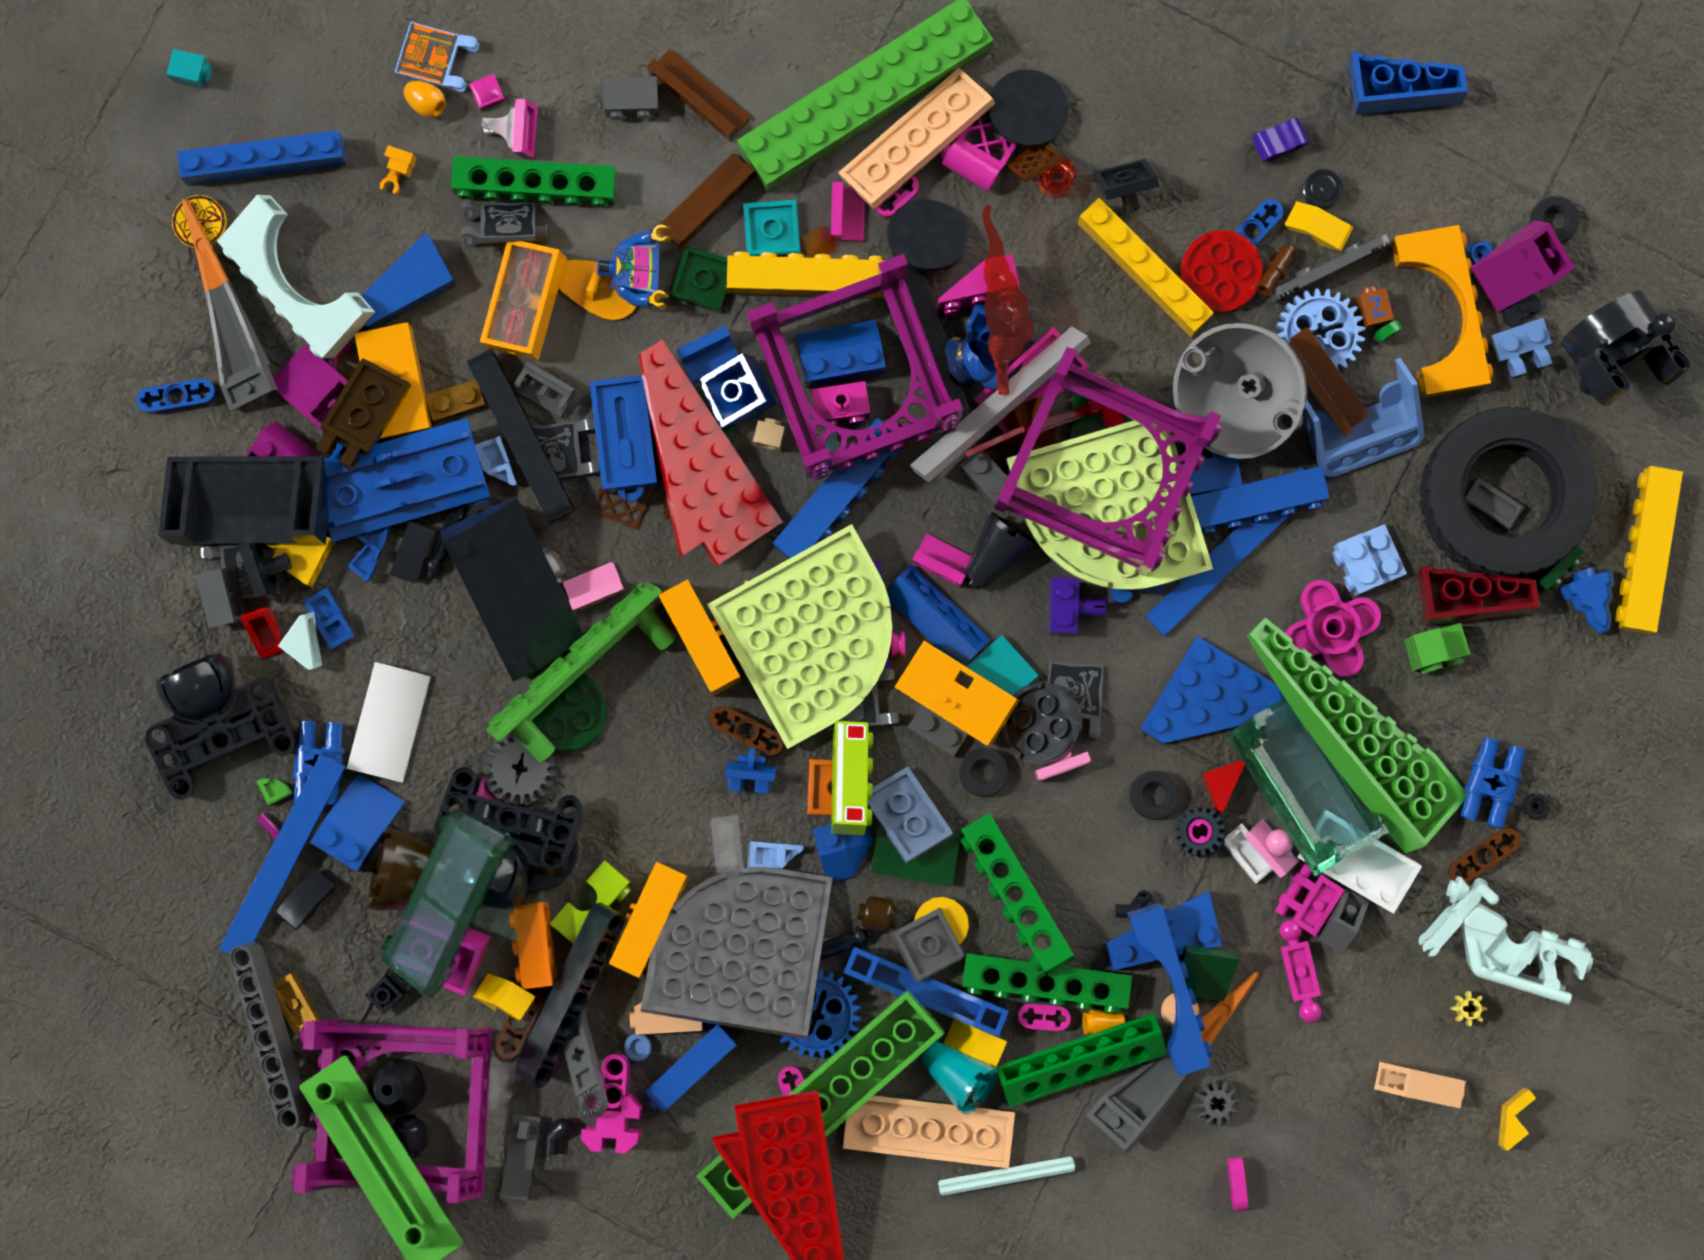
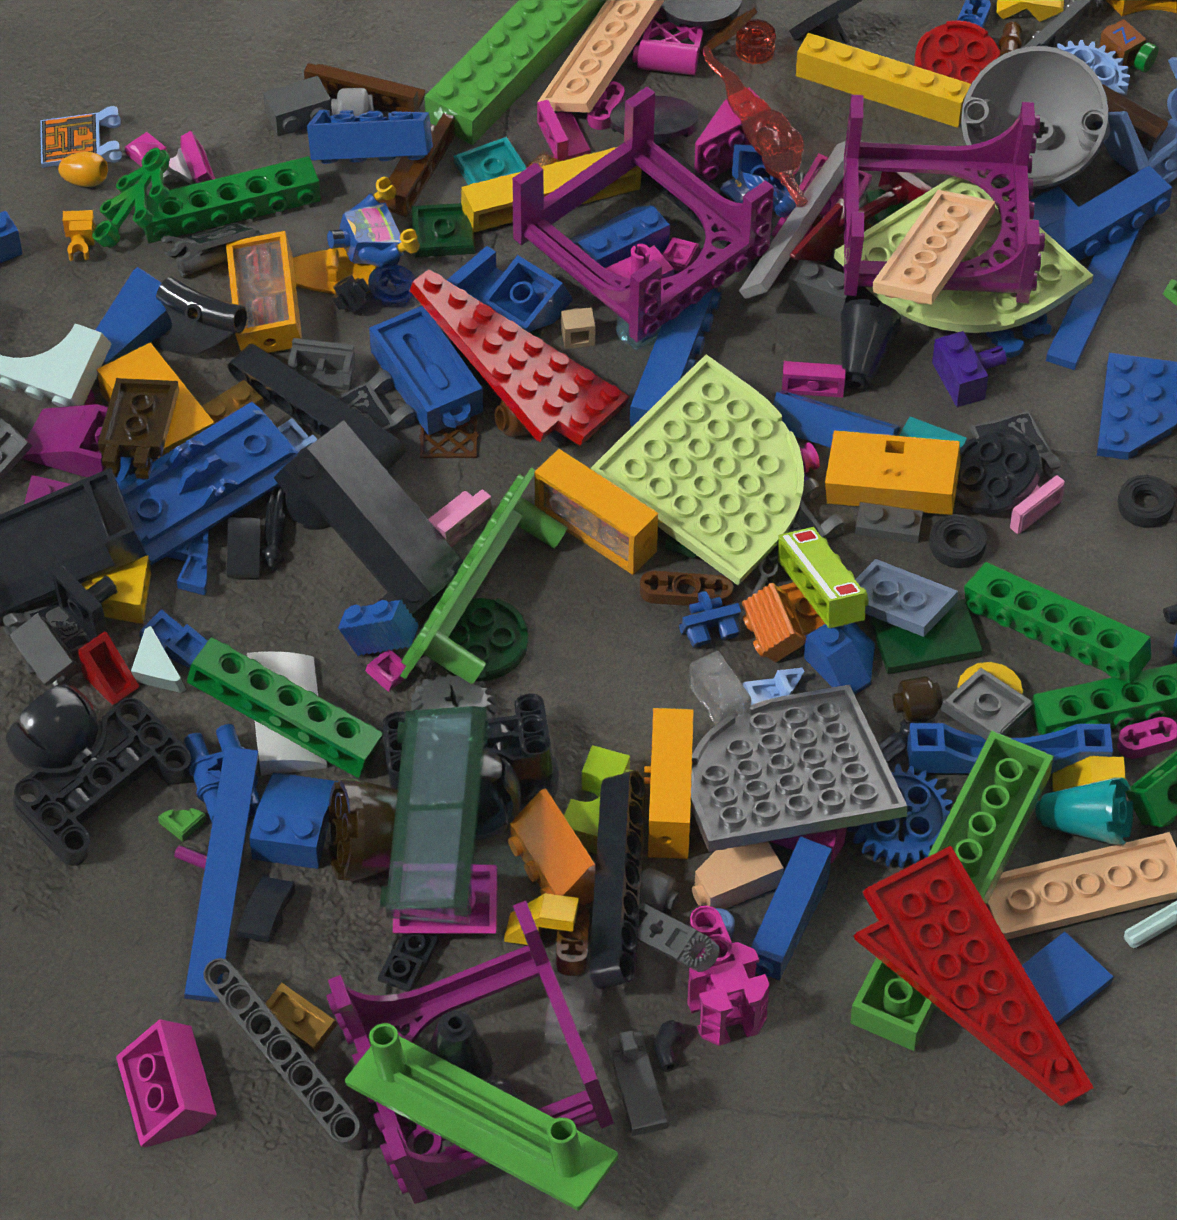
camera: 25 degrees left, 30 degrees down
(178, 1021) = (166, 1083): none -> dark pink slope
(329, 683) = (284, 707): none -> green brick
(454, 312) = (196, 319): none -> black pin
(474, 135) = (132, 194): none -> green plant
(480, 714) = (386, 670): none -> dark pink tile
(483, 682) = (378, 627): none -> blue brick
(595, 325) = (350, 293): none -> black gear
(602, 1003) = (658, 890): none -> dark grey head
(646, 318) = (399, 276): none -> clear blue gear
(668, 169) = (369, 136): none -> blue wedge
(676, 118) = (352, 99): none -> light grey head
(797, 799) = (773, 623): none -> orange brick
(814, 744) = (764, 577): none -> dark grey hand
(869, 1201) = (1066, 976): none -> blue tile
(888, 389) = (681, 253): none -> dark pink tile
(1080, 507) = (934, 247): none -> light nougat plate

